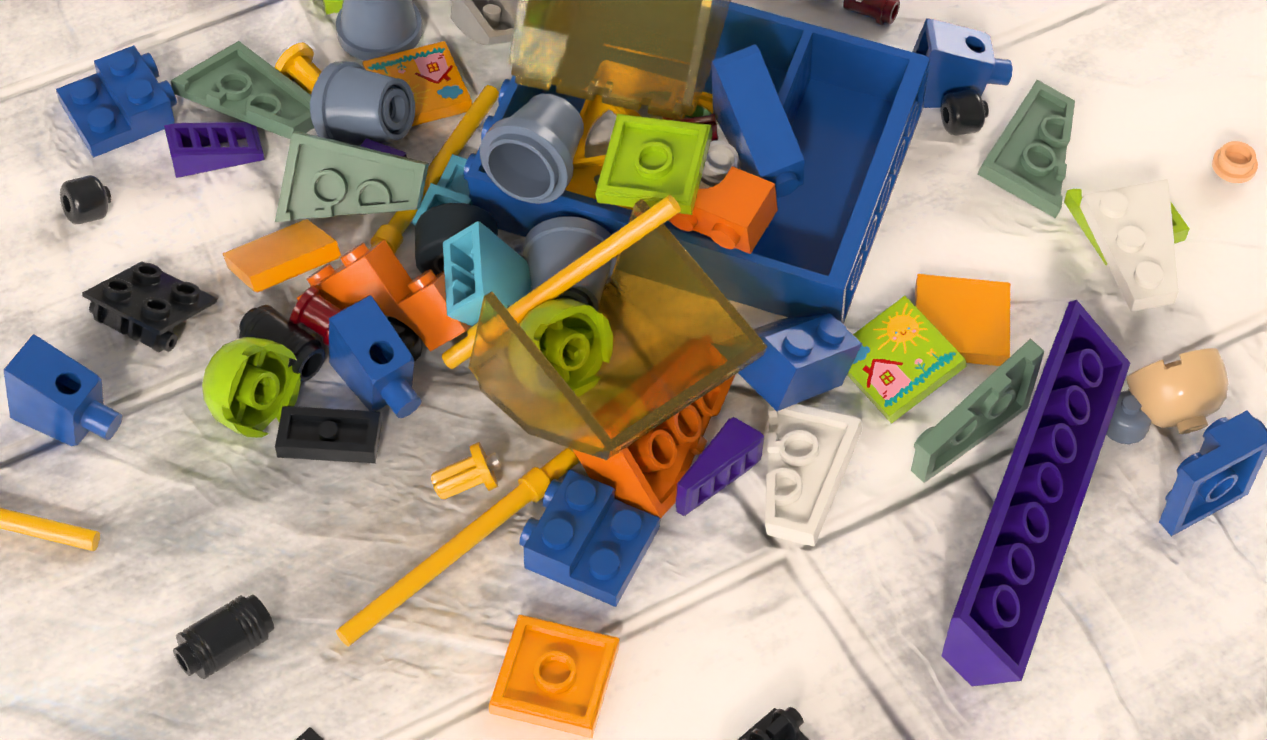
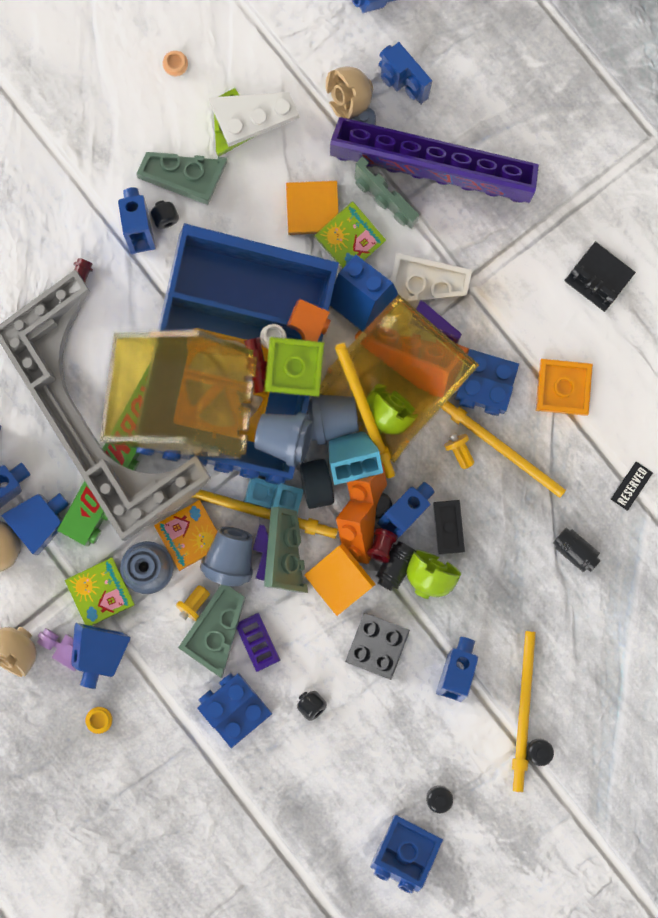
camera: 100 degrees left, 30 degrees up
(755, 120) = (258, 313): blue slope -> none

